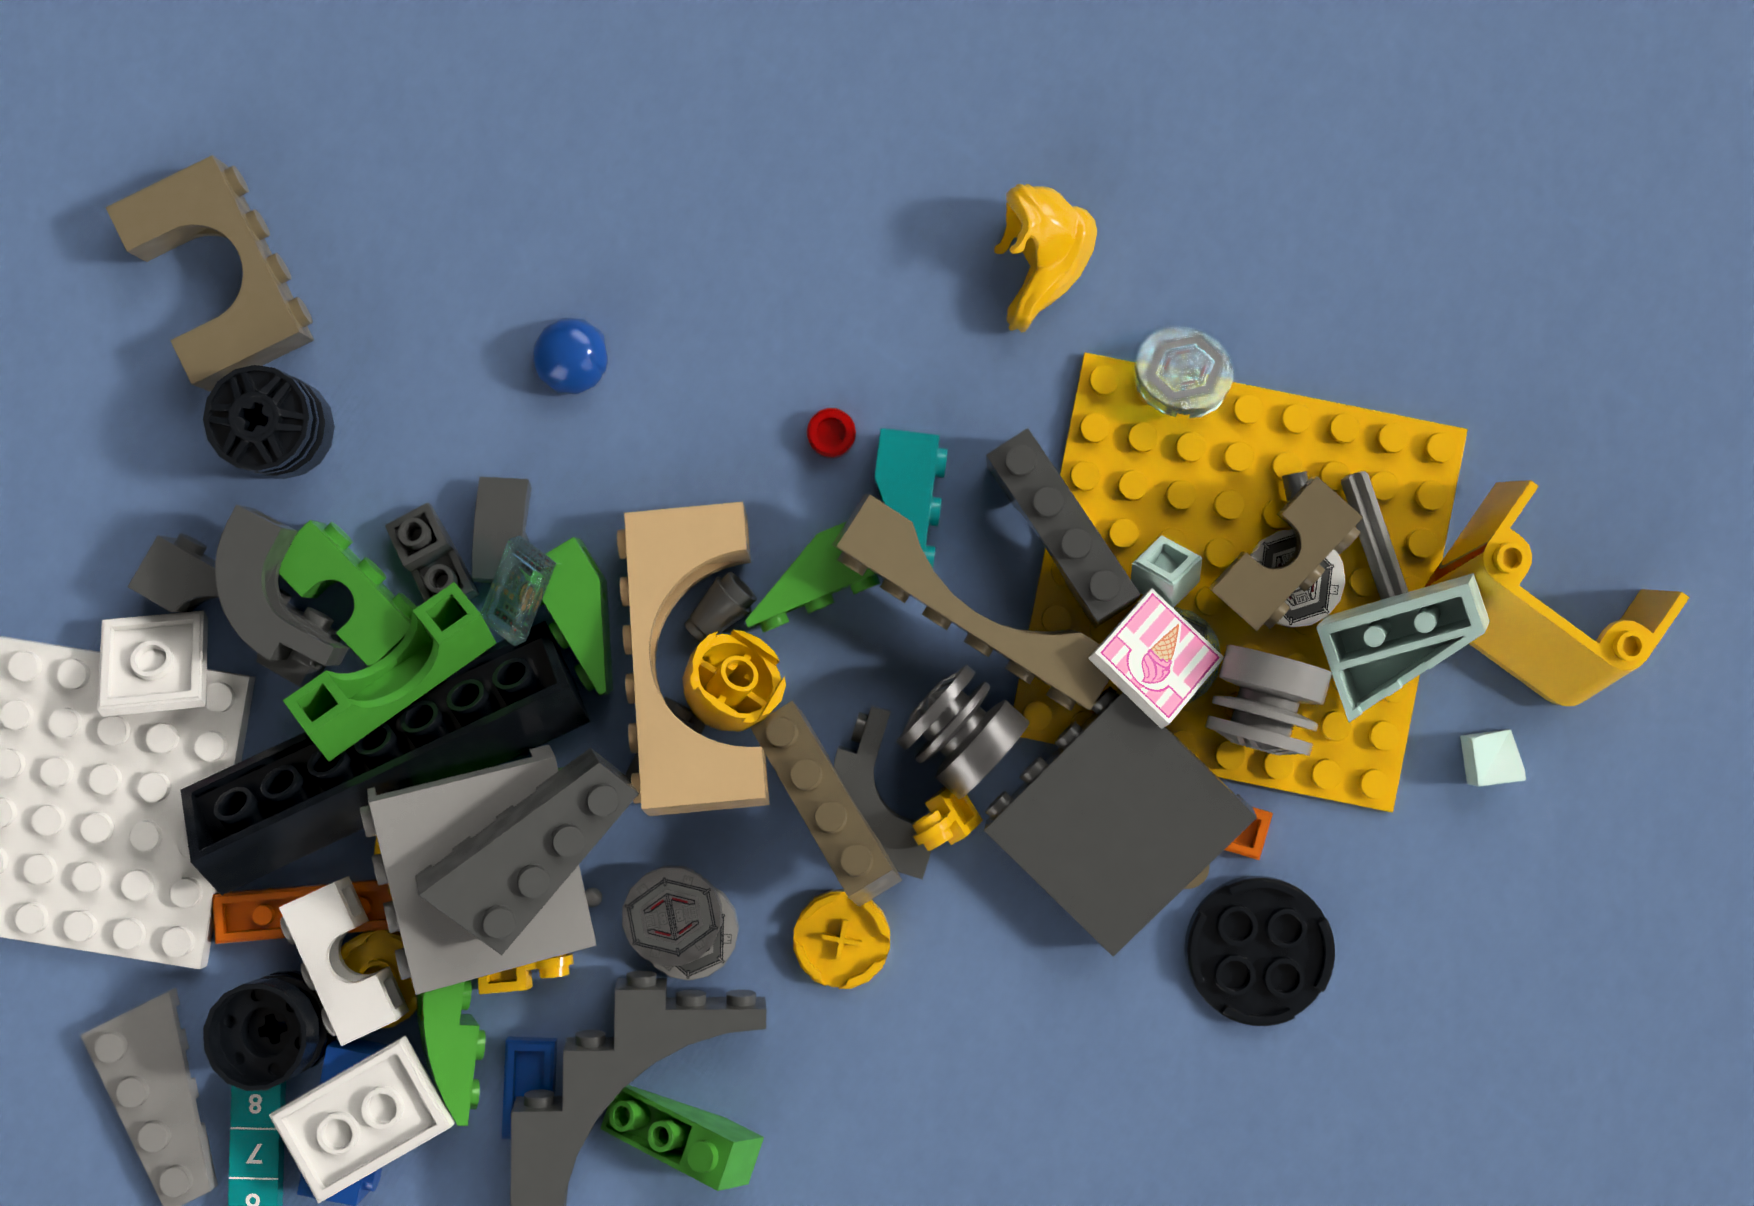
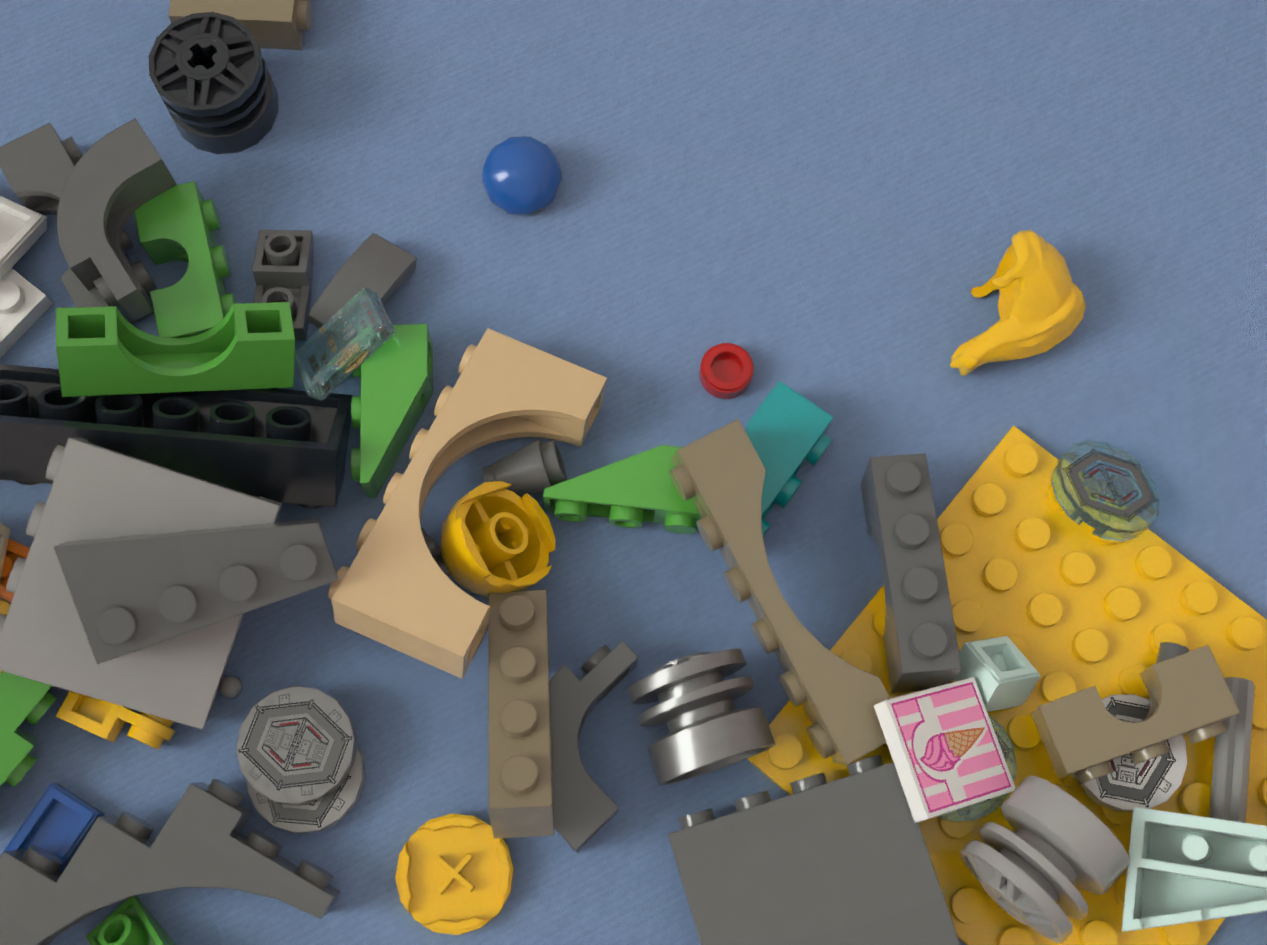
camera: 20 degrees right, 15 degrees down
(948, 820) = (636, 799): yellow plate -> none

